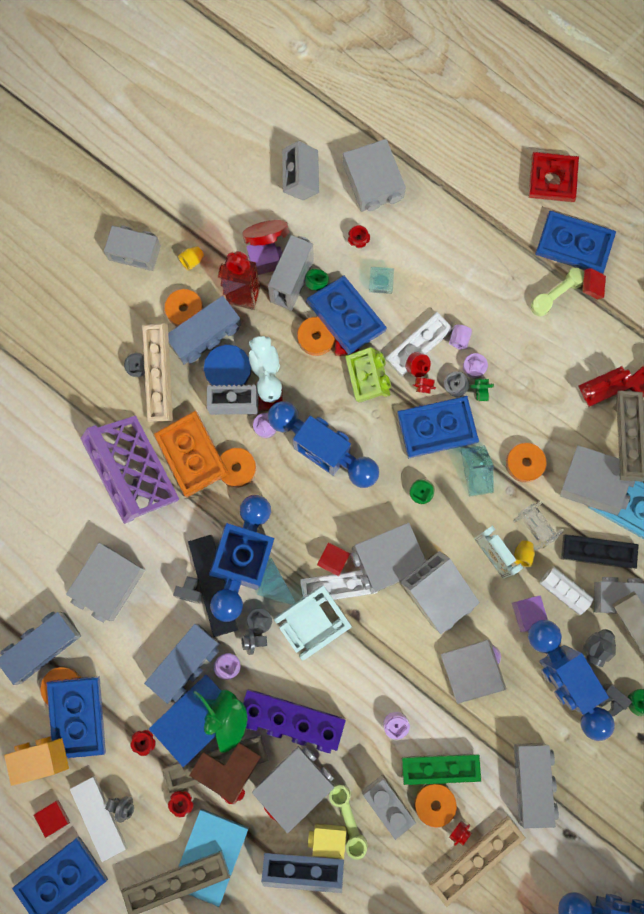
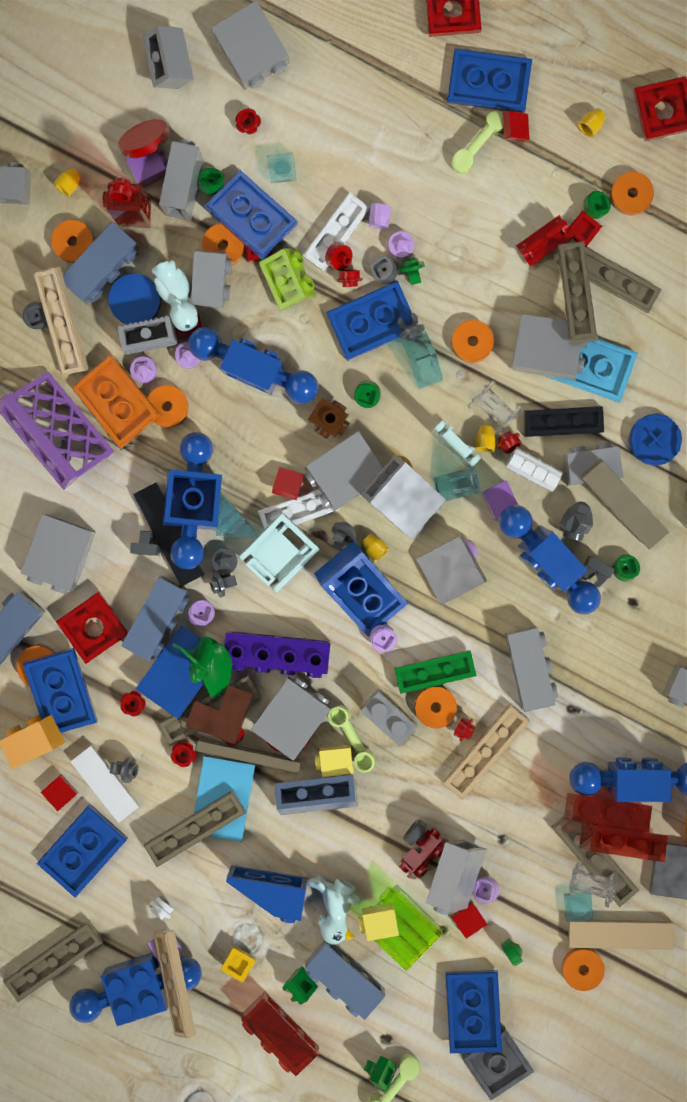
camera: 15 degrees left, 10 degrees up
(104, 655) = (74, 627): none -> red piece
(222, 431) = (143, 370): none -> lavender tile
(244, 817) = (248, 755): none -> dark tan tile
(299, 360) = (210, 278): none -> light grey brick
(376, 616) = (343, 533): none -> dark grey plate
(383, 497) = (325, 409): none -> reddish brown brick
(383, 672) = (360, 588): none -> blue slope
(403, 635) = (375, 547): none -> yellow hose
(474, 442) = (412, 331): none -> dark grey plate
(494, 590) = (458, 484): none -> clear light blue slope
(546, 560) = (509, 442): none -> red plate

